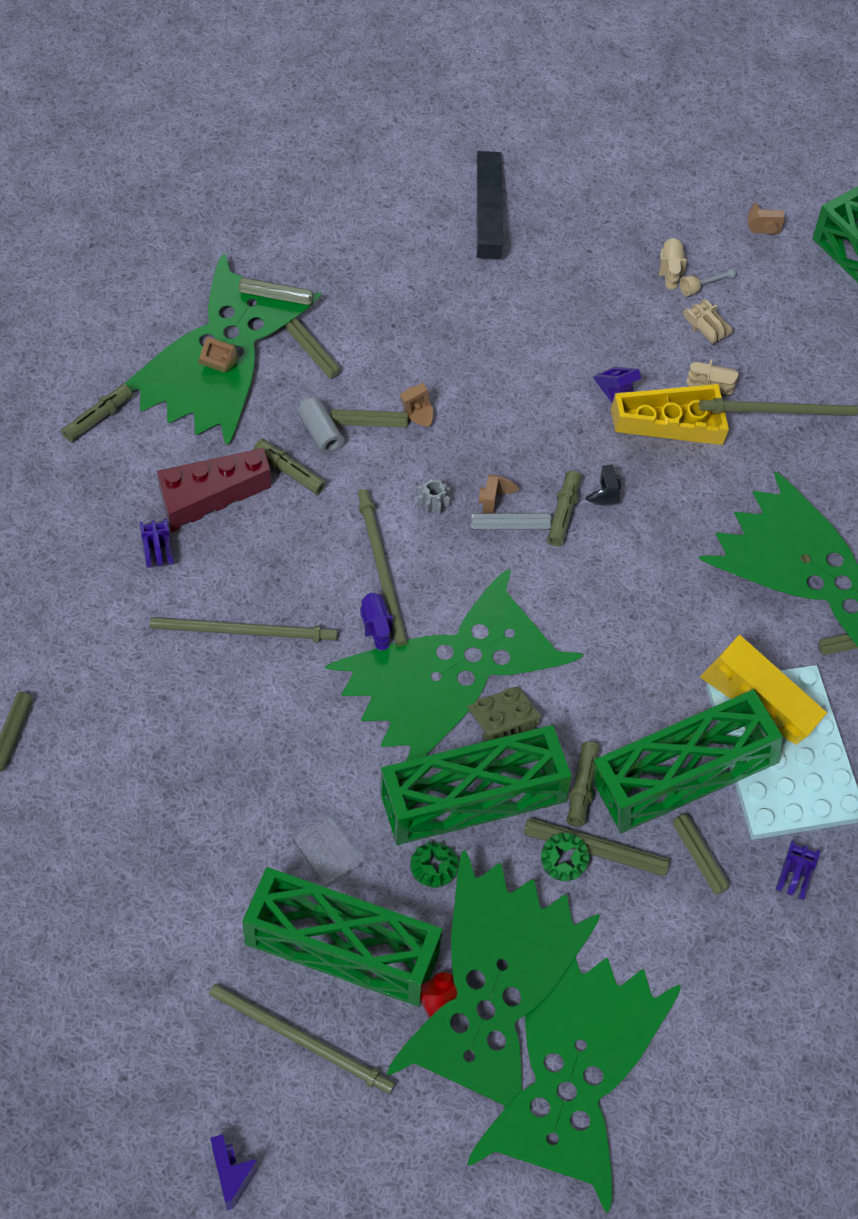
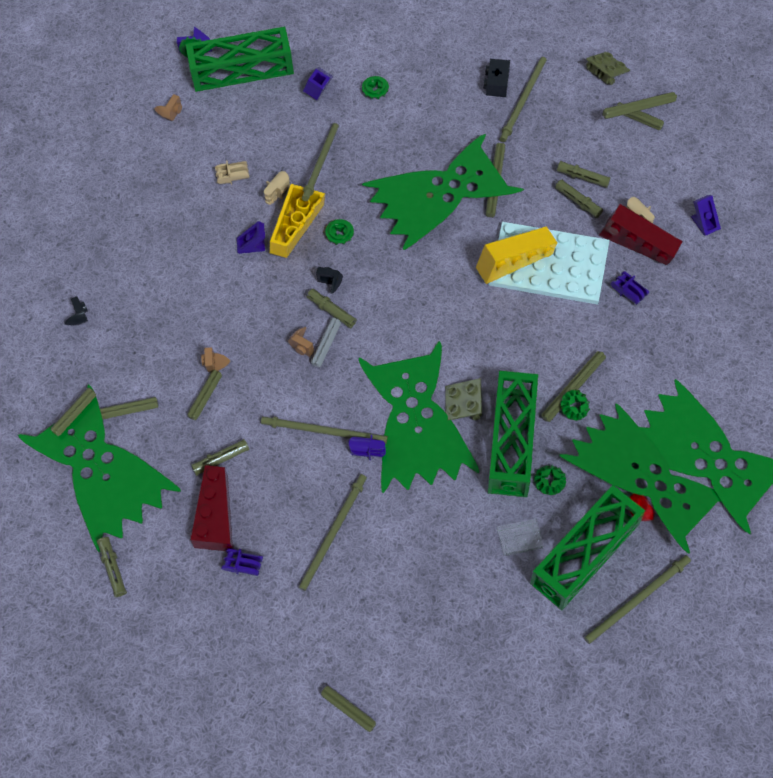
camera: 60 degrees left, 5 degrees up
(218, 355) = (108, 467): medium nougat plate -> none
(232, 1178) = (719, 669): dark purple slope -> none
(320, 425) = (196, 425): light grey brick -> none
(416, 246) = (80, 316): none -> black plate
(433, 495) = (287, 378): light grey gear -> none
(489, 205) = (68, 255): black slope -> none
(581, 792) = (543, 383): olive pin -> none
(672, 262) = (176, 172): tan arm -> none
(680, 467) = (339, 225): none -> green gear
(691, 284) = (196, 167): tan hinge -> none
(691, 782) = (553, 358): green piece -> none
(701, 854) = (599, 333): olive axle -> none

